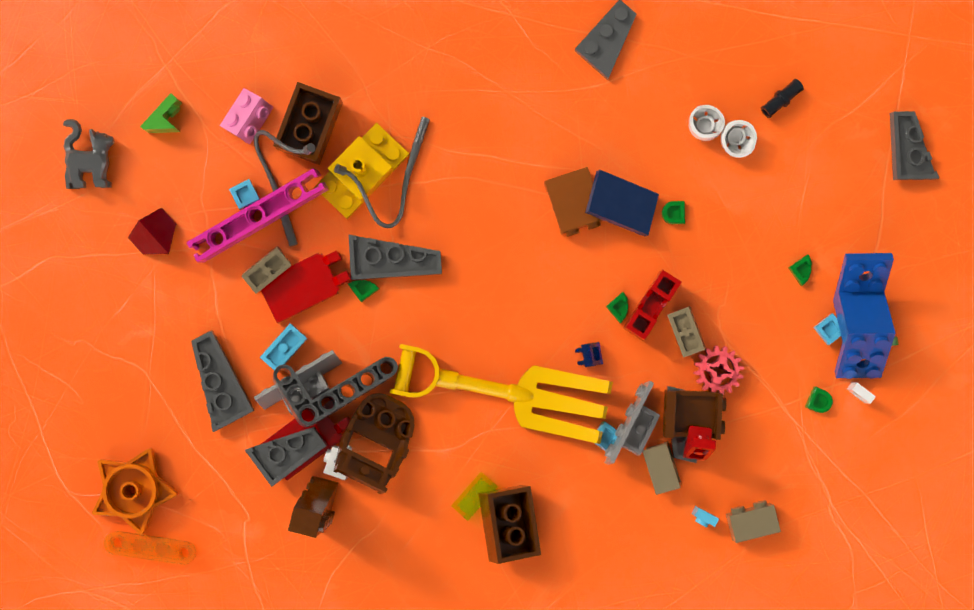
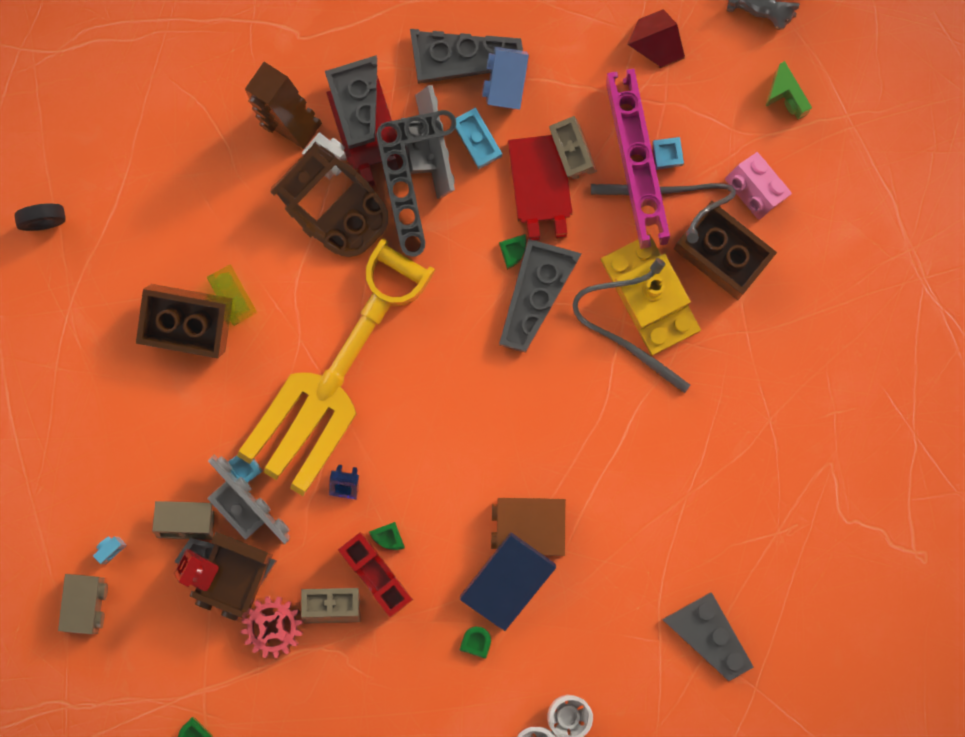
camera: 105 degrees right, 5 degrees down
(227, 340) = (506, 77): none -> medium blue brick

